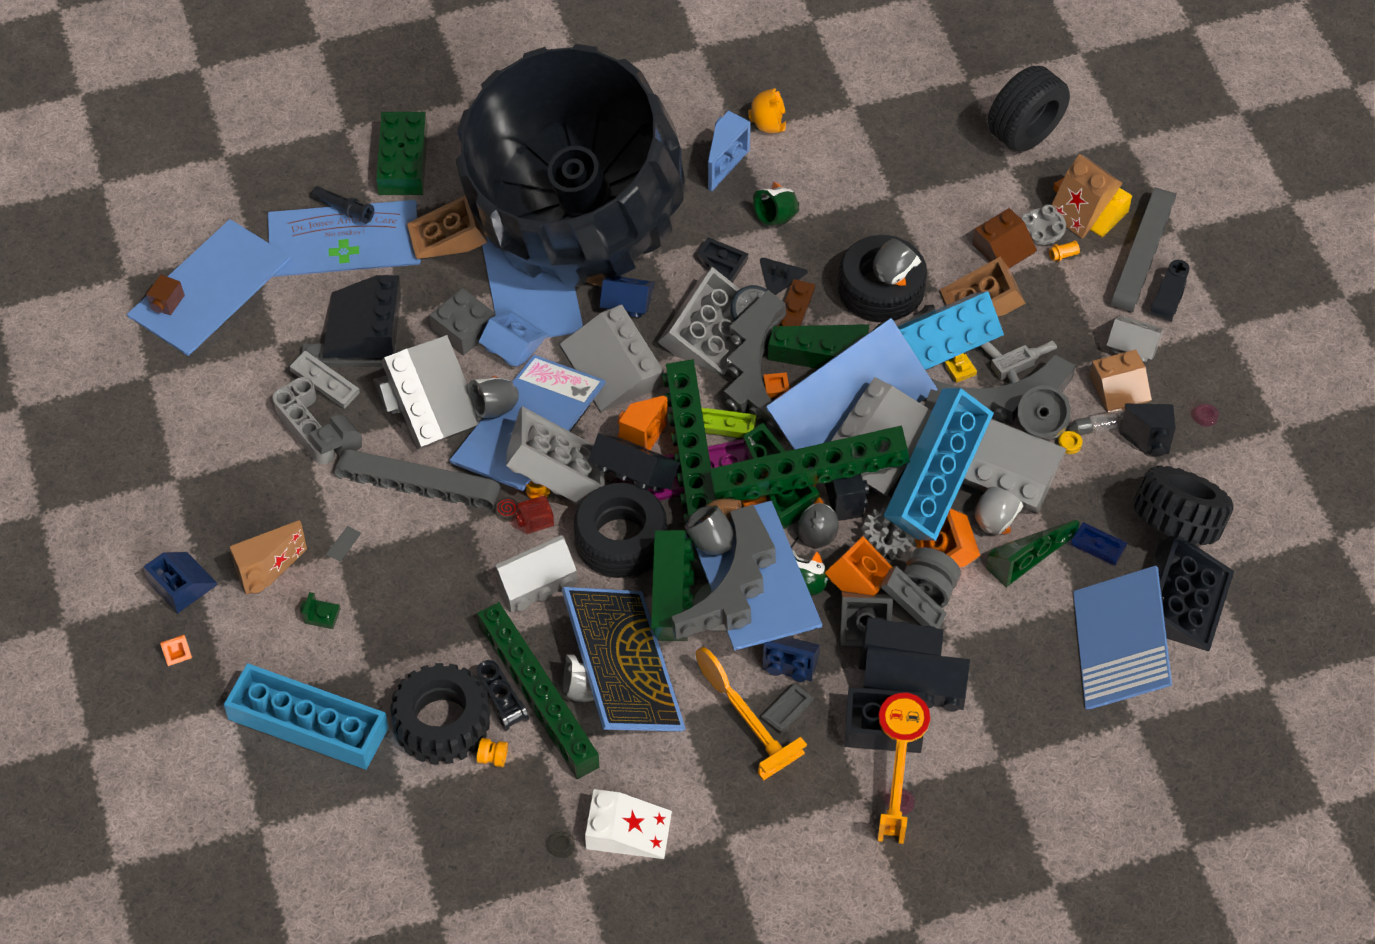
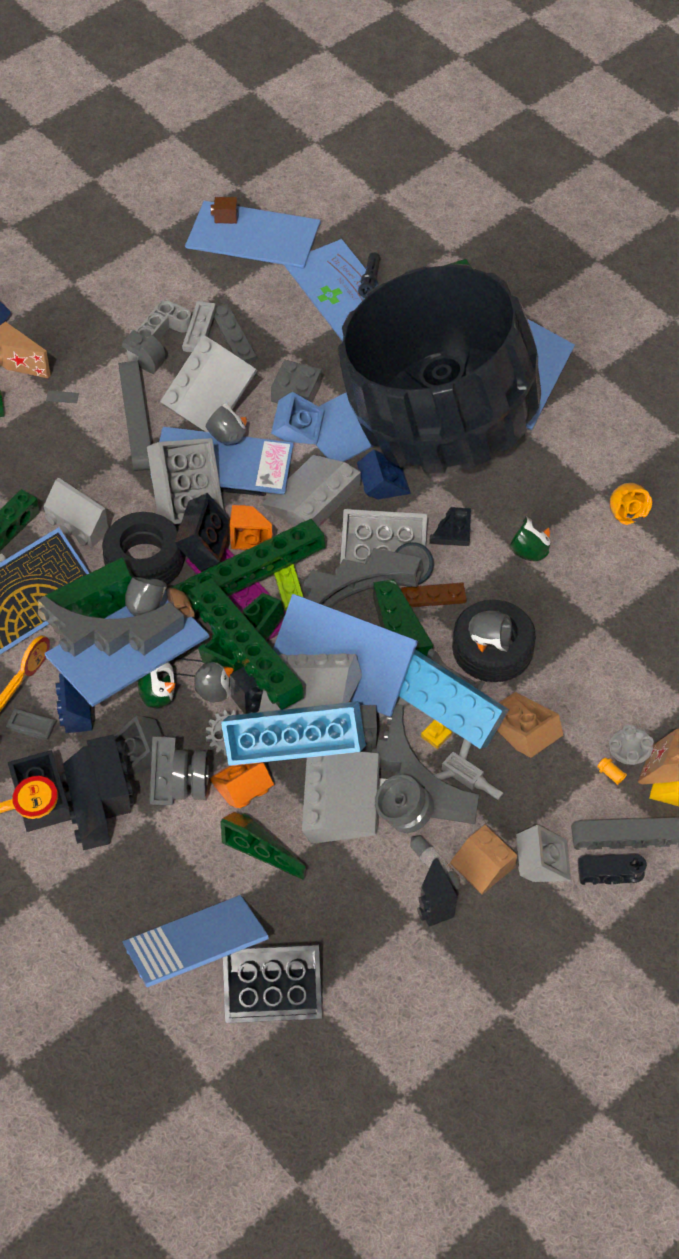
camera: 65 degrees right, 0 degrees up
(364, 319) = (265, 329): black slope -> none
(506, 509) = (137, 479): clear smoke tile -> none
(535, 514) = (137, 496): clear red brick -> none
(728, 147) = (563, 484): medium blue slope -> none
(776, 384) = (346, 605): orange plate -> none
(779, 275) = (465, 571): black piece -> none
(859, 569) = (179, 721): orange slope -> none
(997, 511) = (285, 804): light grey piece -> none
(1004, 237) = (593, 719): reddish brown slope -> none
(1070, 441) = (399, 843): yellow tile -> none
(1099, 543) = (297, 897): clear blue plate -> none
(1183, 505) = (329, 947): black tyre -> none
(1206, 415) = (487, 943): clear pink tile -> none

